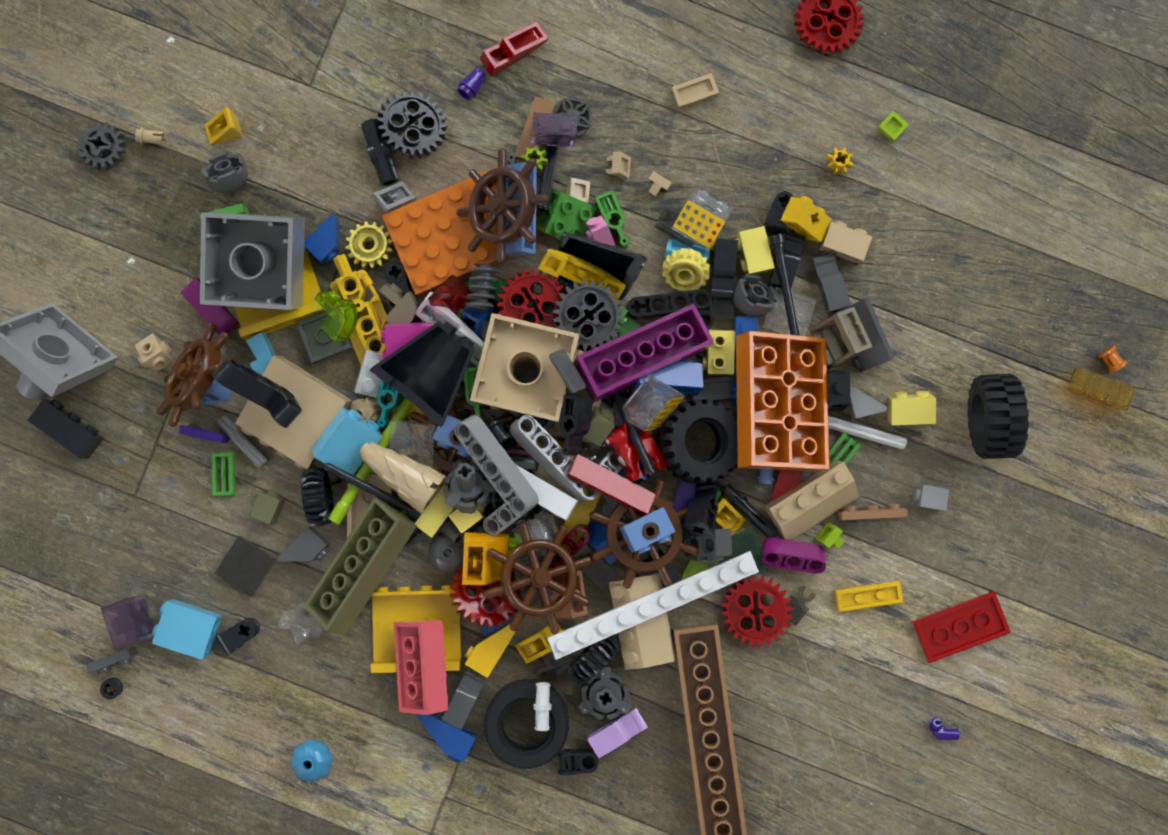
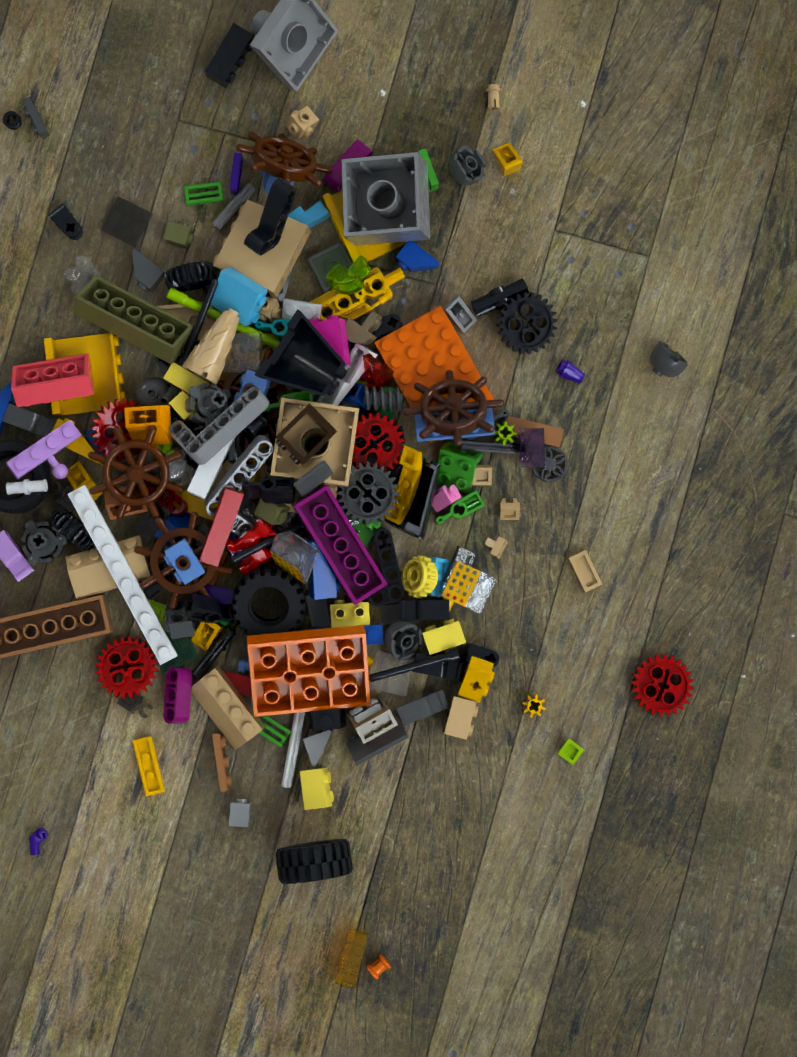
camera: 85 degrees right, 0 degrees up
(103, 154) = (473, 55): dark grey gear -> none
(128, 621) = (68, 129): clear purple brick -> none
(186, 629) = (67, 178): medium azure brick -> none
(361, 237) = (415, 287): light yellow gear -> none
(502, 682) = (44, 450): none -> lavender plate
(503, 356) = (319, 420): none -> dark brown window
(513, 48) = (606, 405): red slope -> none
(829, 536) = (198, 726): lime tile -> none
(961, 627) = (129, 850): red tile -> none

